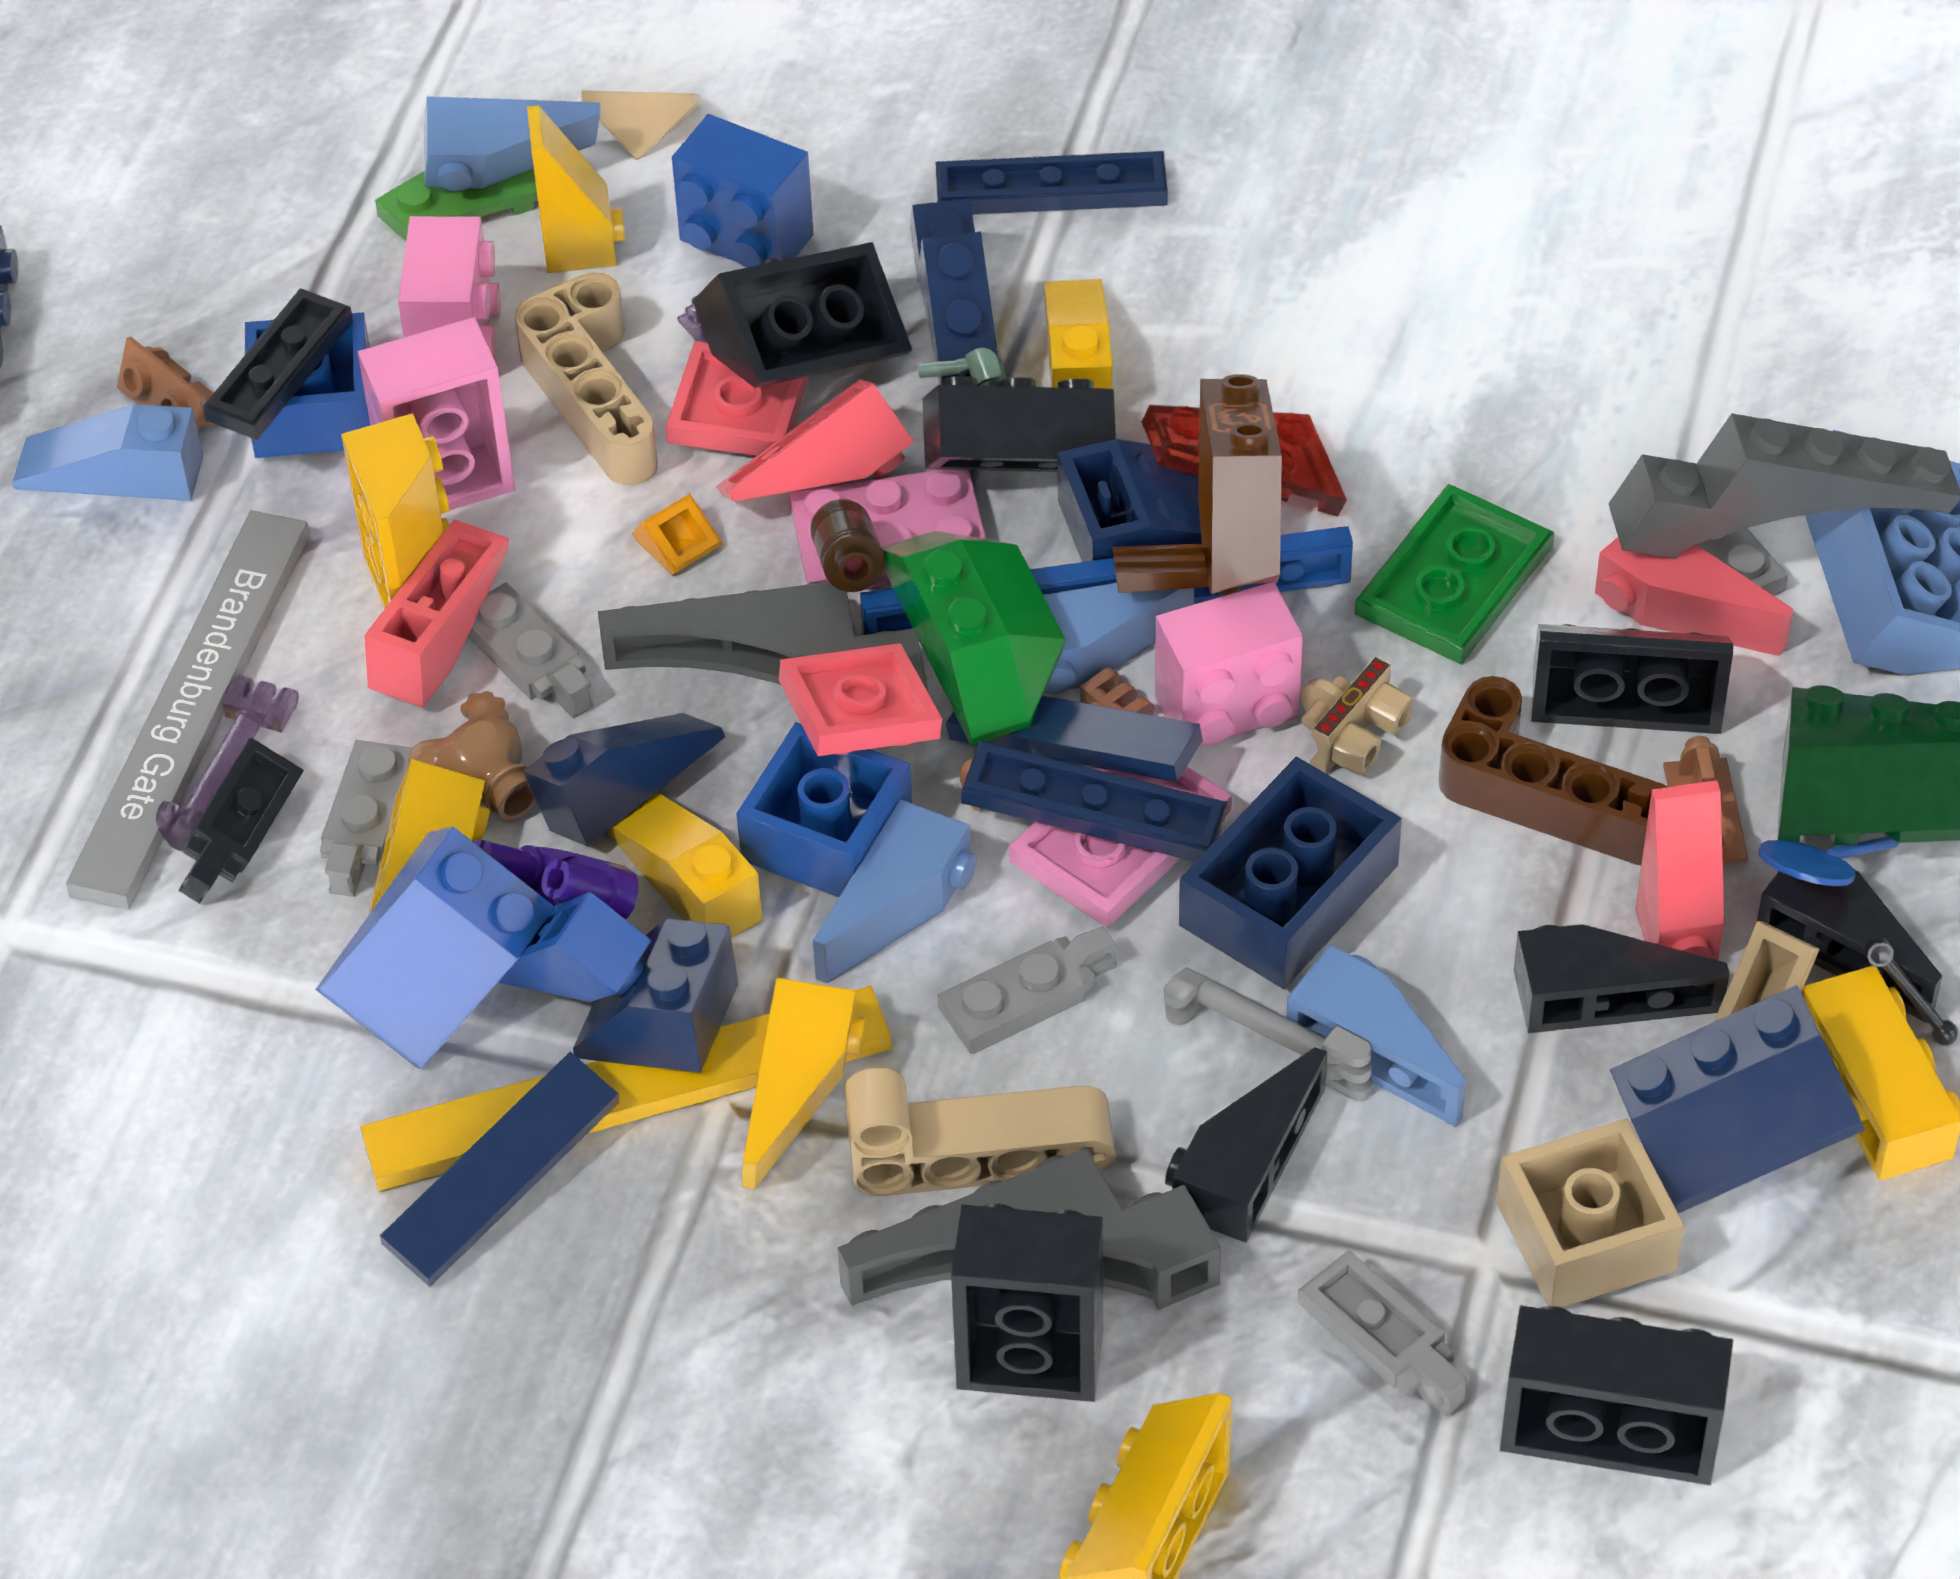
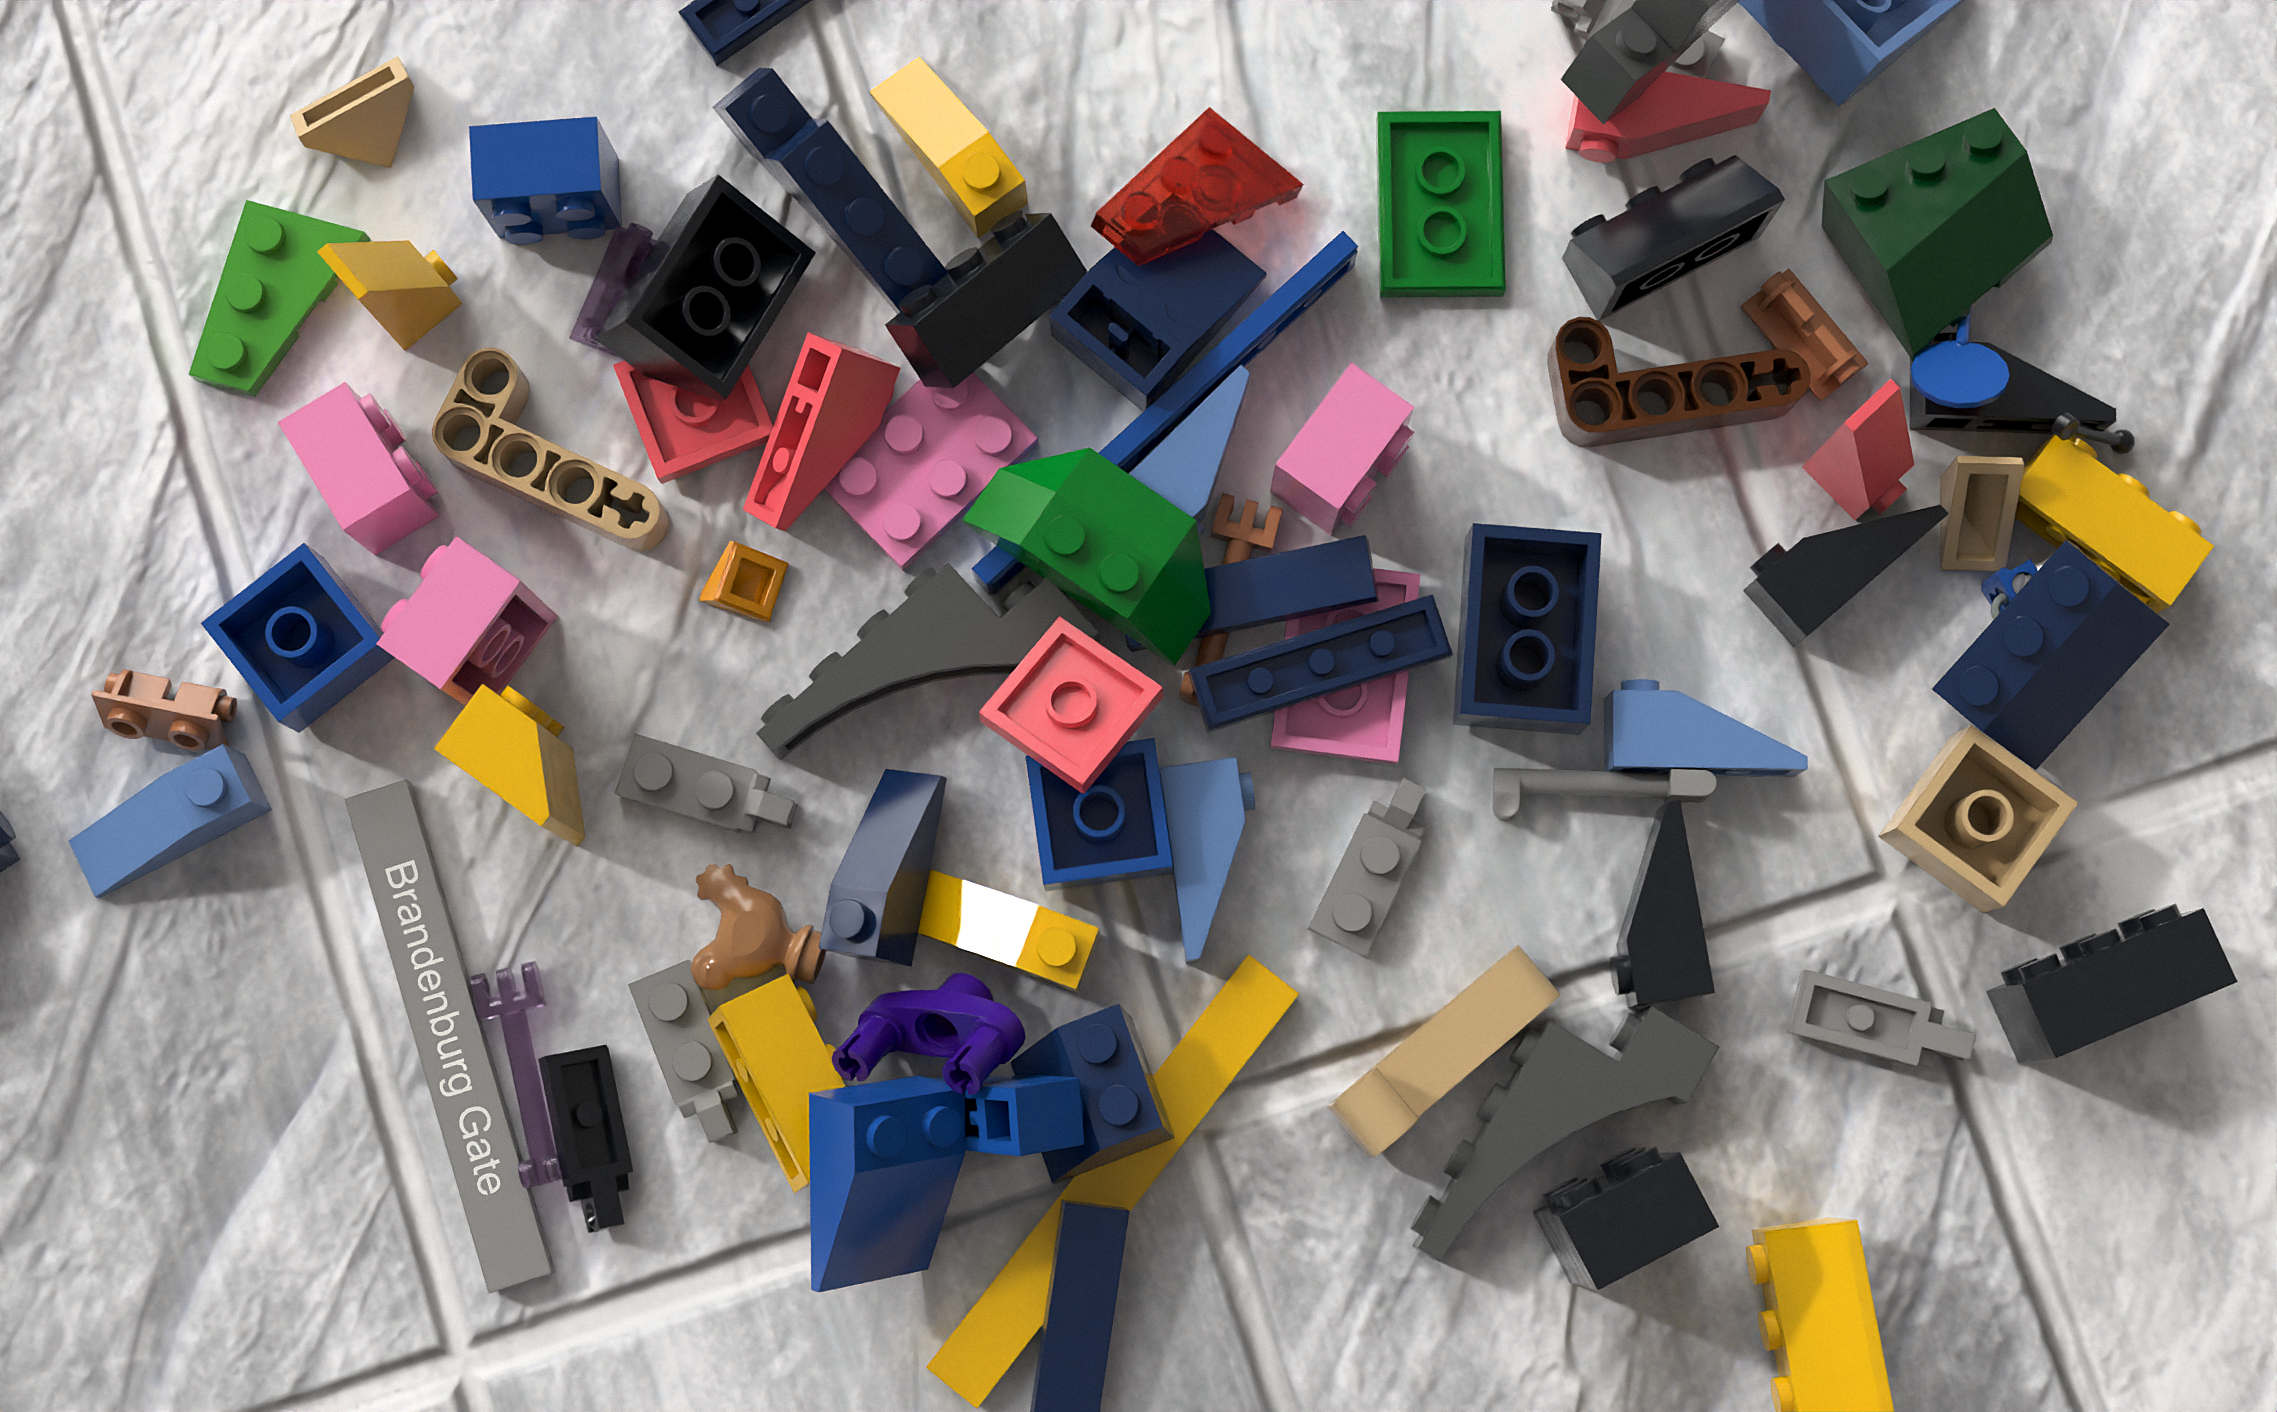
camera: 35 degrees left, 30 degrees up
(278, 364) = (274, 656): black tile -> none
(432, 614) = (606, 815): coral slope -> none
(489, 139) = (258, 261): medium blue slope -> none
(800, 1065) = (1259, 1086): yellow slope -> none
(847, 545) = (932, 532): dark brown head -> none
(980, 363) = (917, 257): sand green hand -> none
(1236, 500) = (1277, 299): reddish brown piece -> none
(1343, 711) = (1469, 396): tan hips -> none

